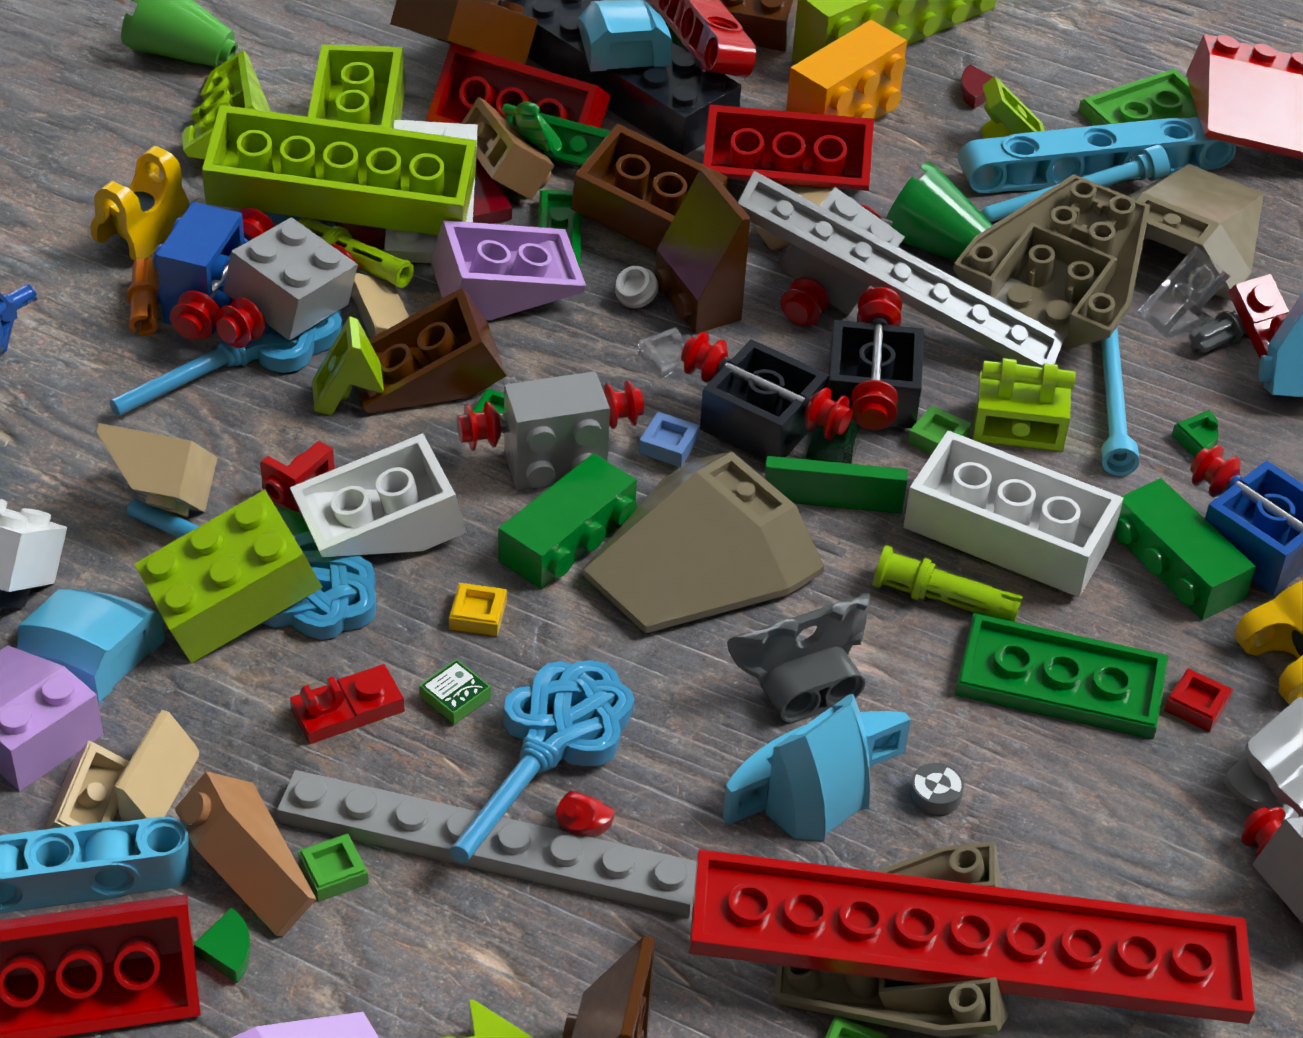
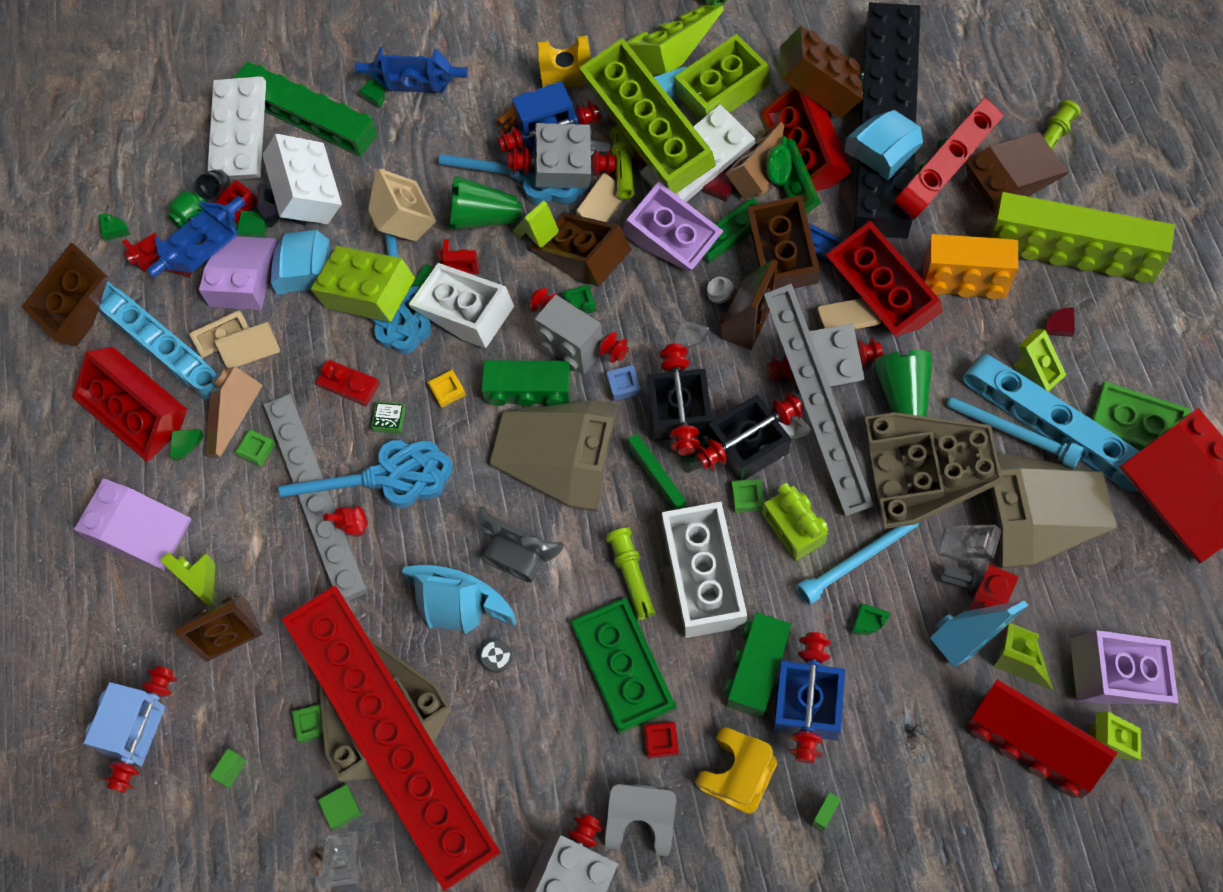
camera: 60 degrees right, 20 degrees up
(243, 407) = (480, 206): none -> green cone

